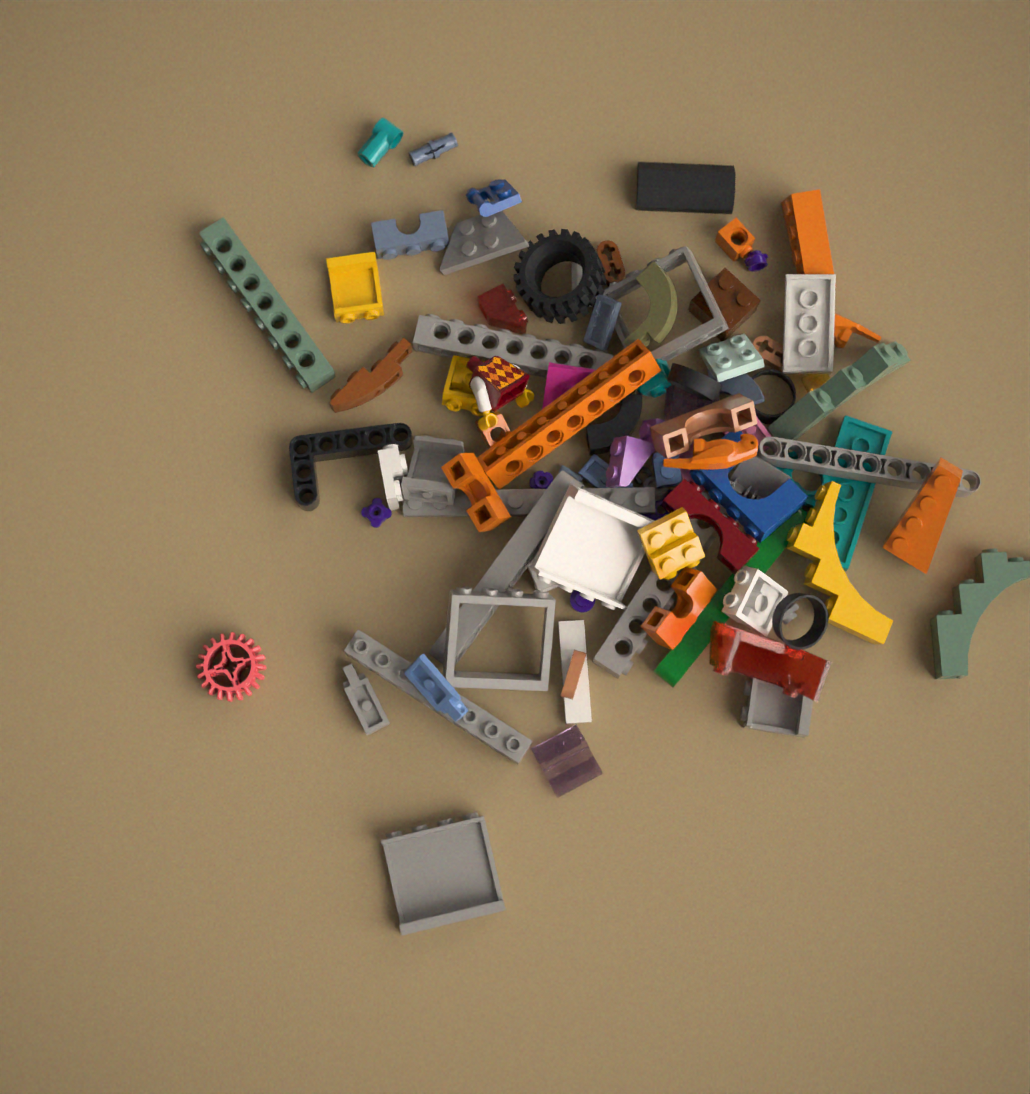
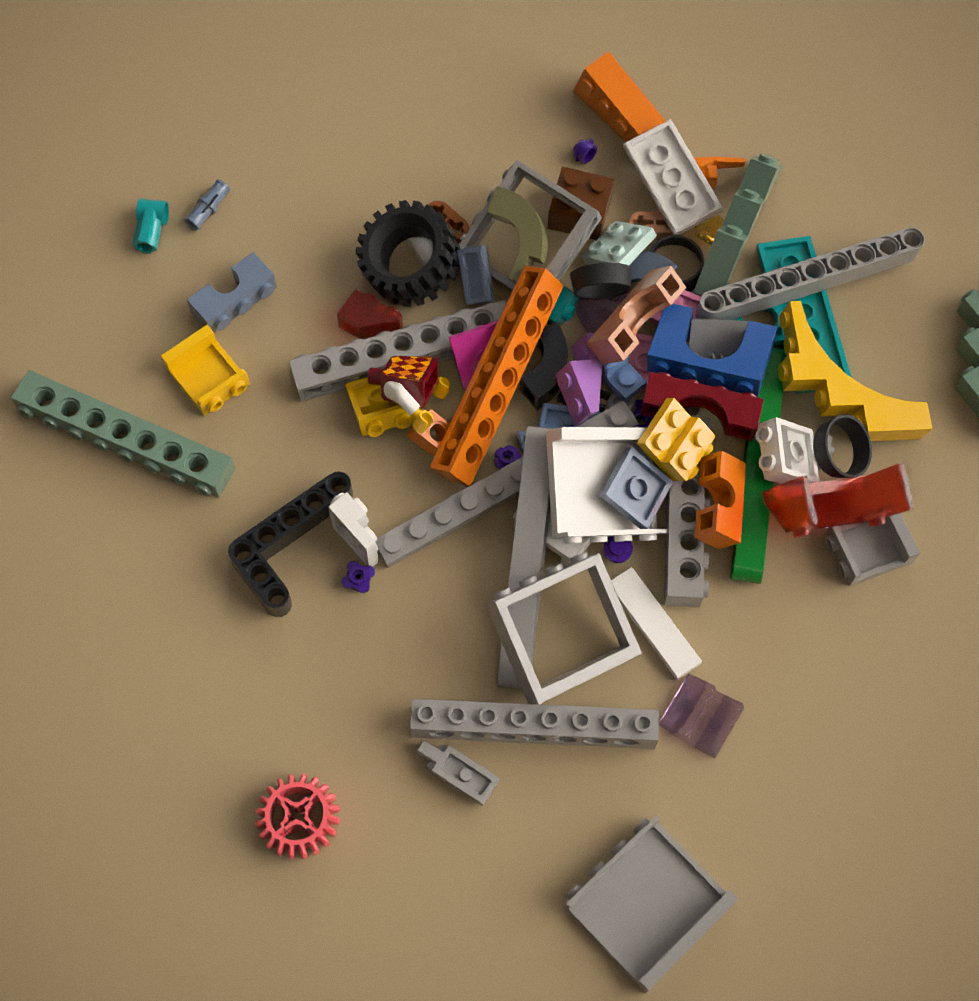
camera: 30 degrees left, 10 degrees down
(365, 386) = (275, 455): dark orange slope -> none
(425, 476) = (393, 501): light grey panel -> none
(435, 688) = (530, 709): medium blue hinge -> none
(468, 475) = (445, 489): orange arch -> none
(481, 240) = (309, 261): light grey wing -> none
(500, 195) = (297, 216): blue plate -> none
(573, 674) = (657, 623): nougat beam -> none
(618, 563) = (636, 488): none -> sand blue plate
(685, 188) = (476, 120): black piece -> none
(717, 453) = (666, 332): orange animal -> none
(736, 230) = (553, 132): orange brick -> none
(923, 520) = (895, 290): orange wedge -> none

